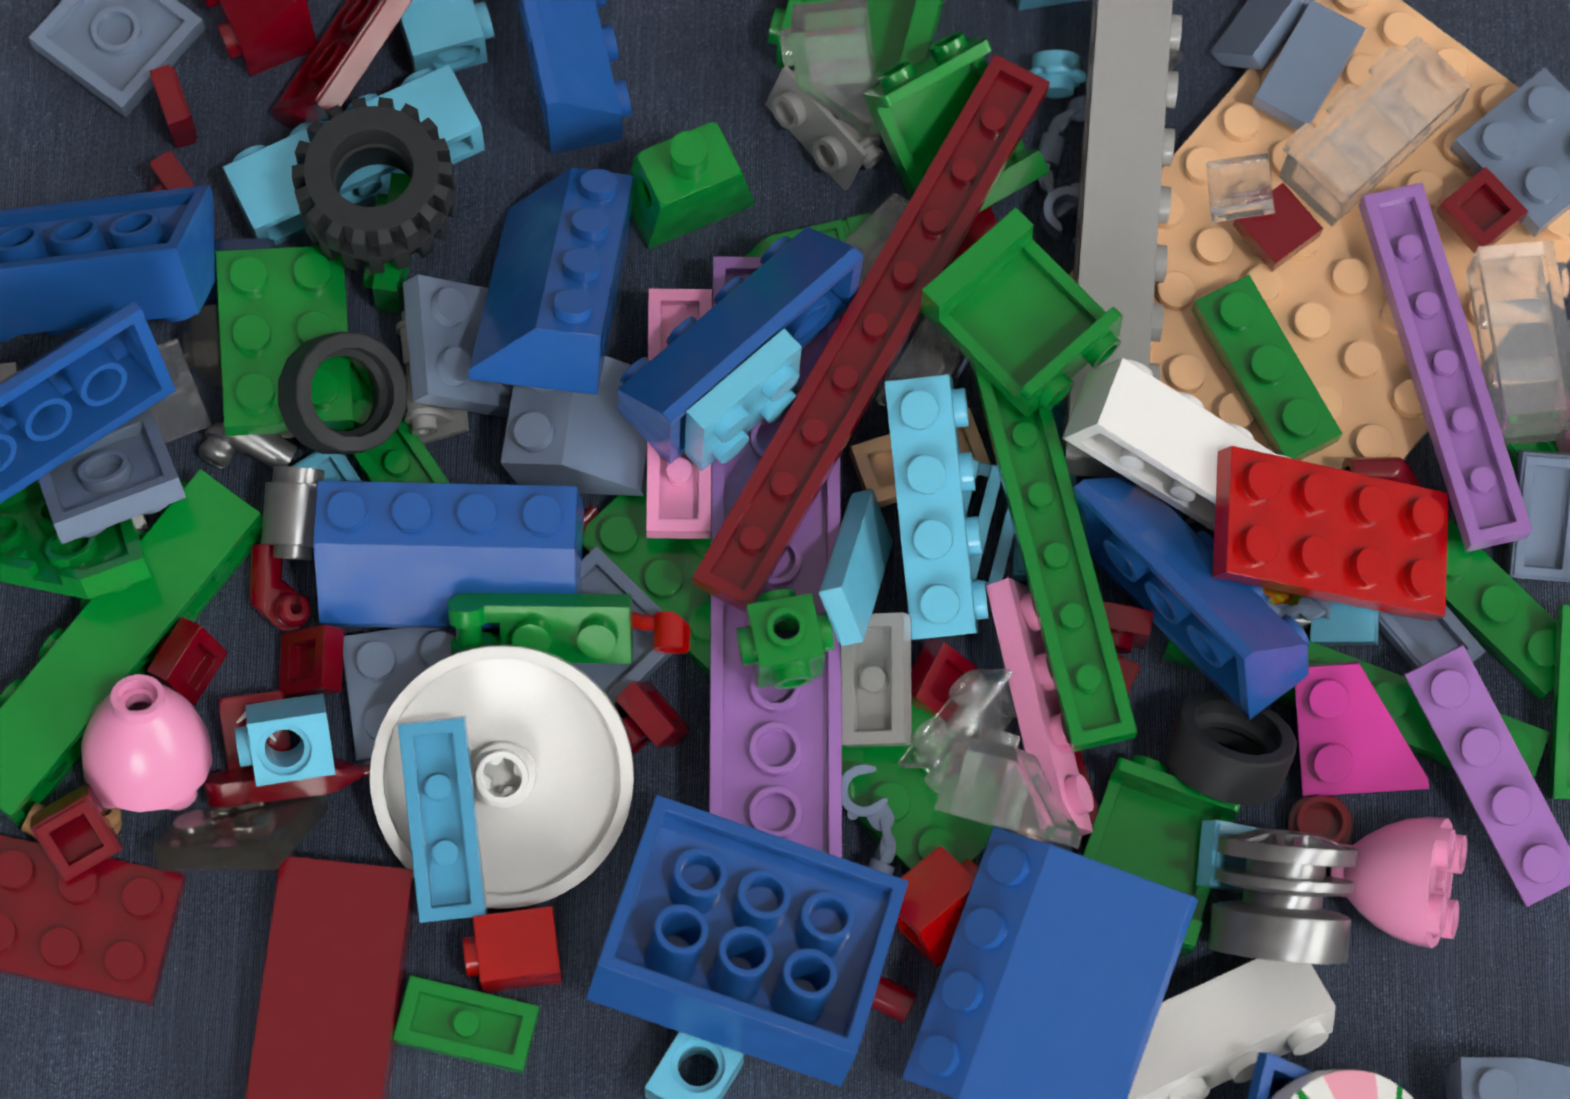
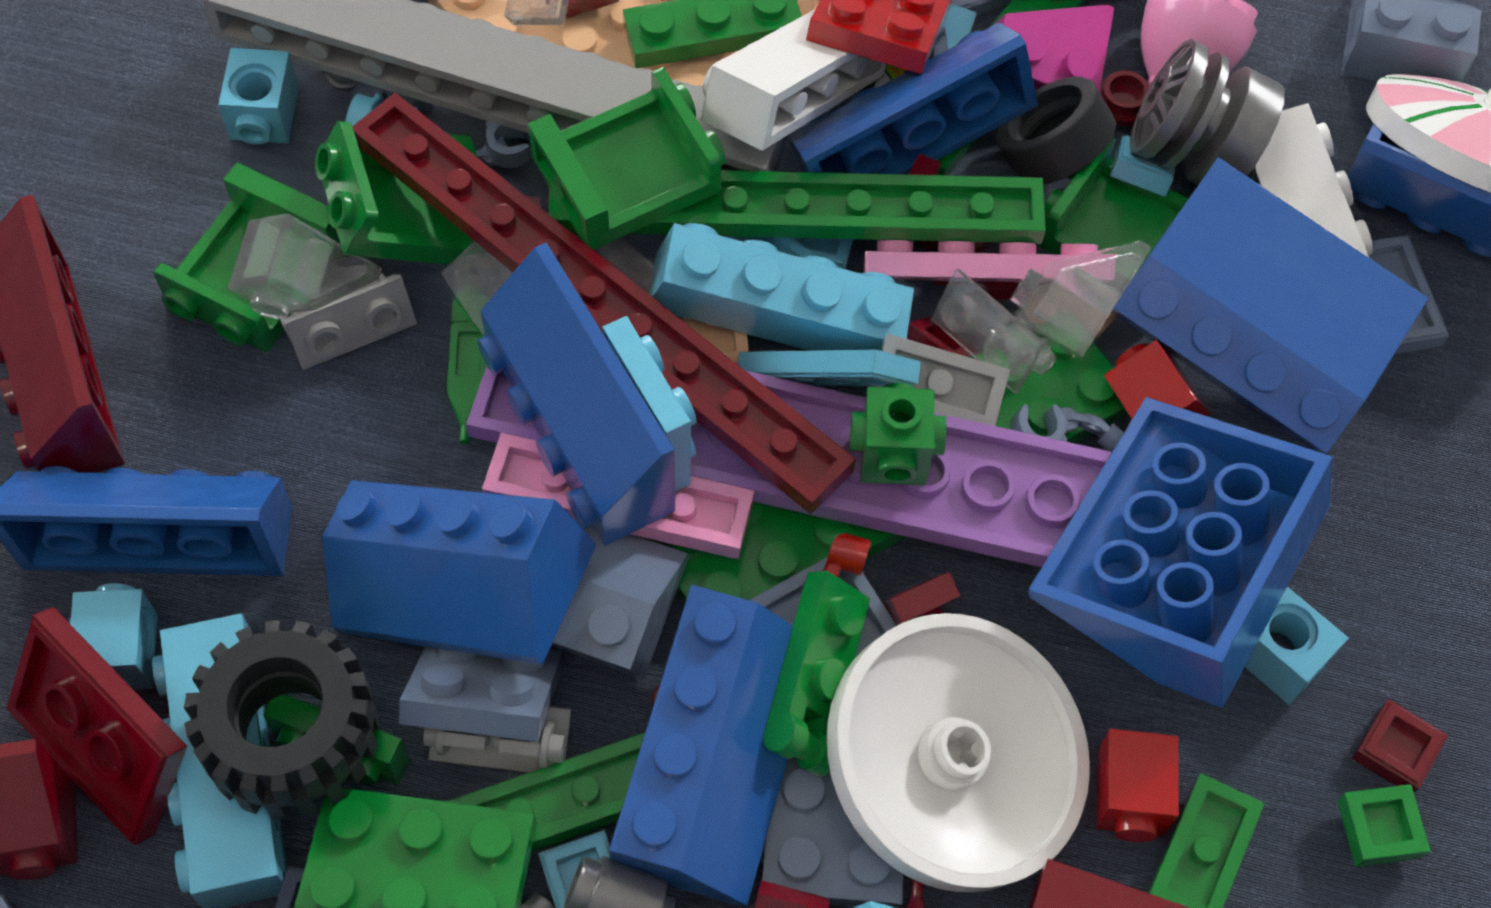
camera: 75 degrees left, 10 degrees down
(388, 393) = (495, 848): black tyre -> none
(442, 819) = (1003, 811): dark azure plate -> none
(689, 185) = (371, 427): green torso -> none

